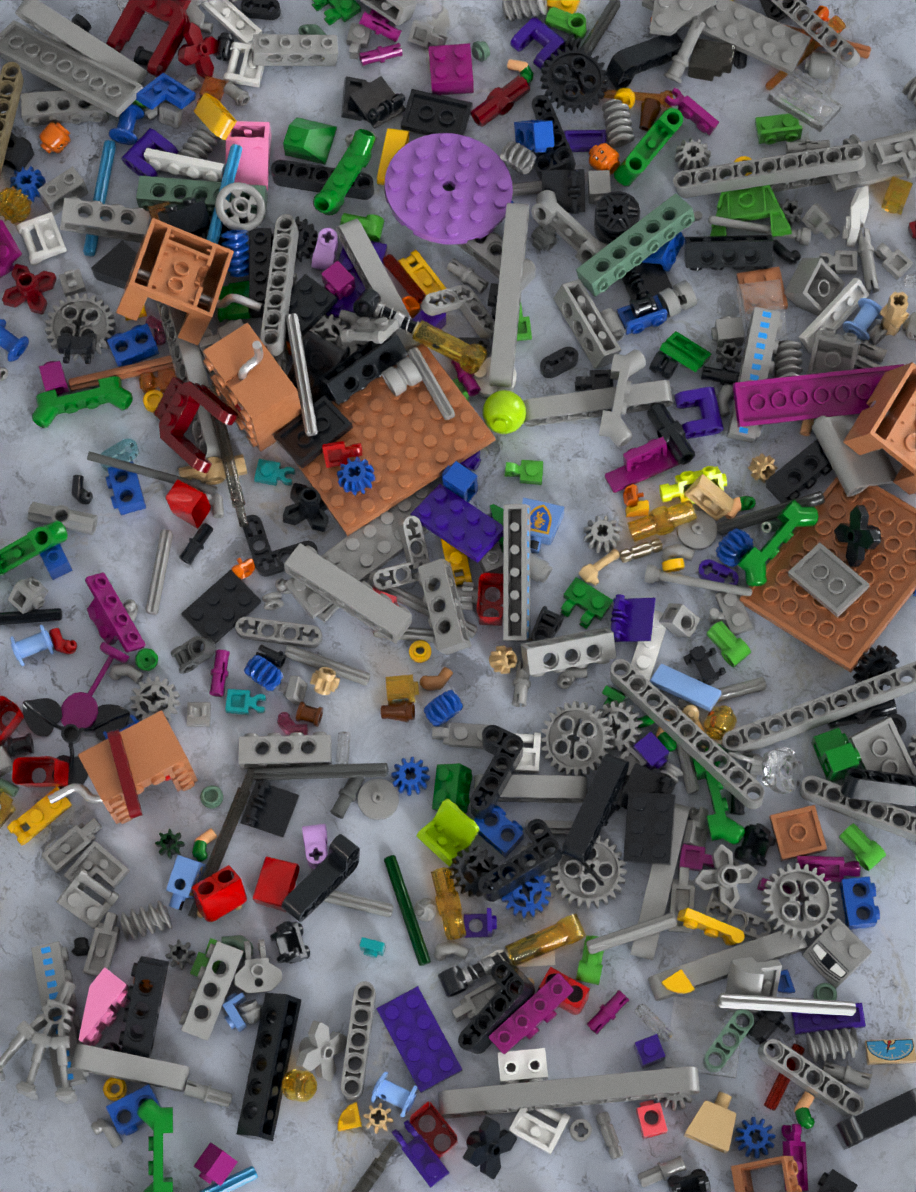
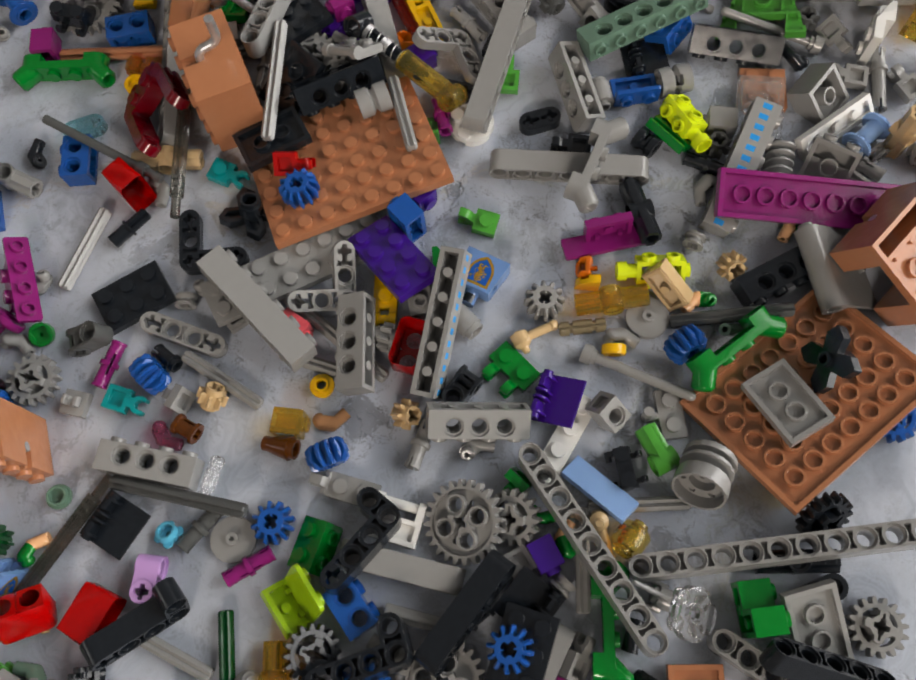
camera: 15 degrees right, 0 degrees up
(159, 333) = (157, 13): clear pink arm -> none
(243, 568) = (167, 262): orange piece -> none
(320, 805) = (168, 534): none -> medium azure plate
(399, 816) = (248, 566): none -> magenta pin
(504, 412) = (470, 156): lime brick -> none
(636, 816) = (499, 650): none -> blue gear
(642, 305) = (637, 78): black bush -> none
(696, 338) = (686, 121): none -> neon yellow brick
(709, 409) = (684, 185): dark purple connector -> none
(718, 569) = (663, 366): dark purple beam -> none
(725, 451) = (694, 240): none -> light grey bush
(771, 655) = (705, 474): none -> light grey wheel

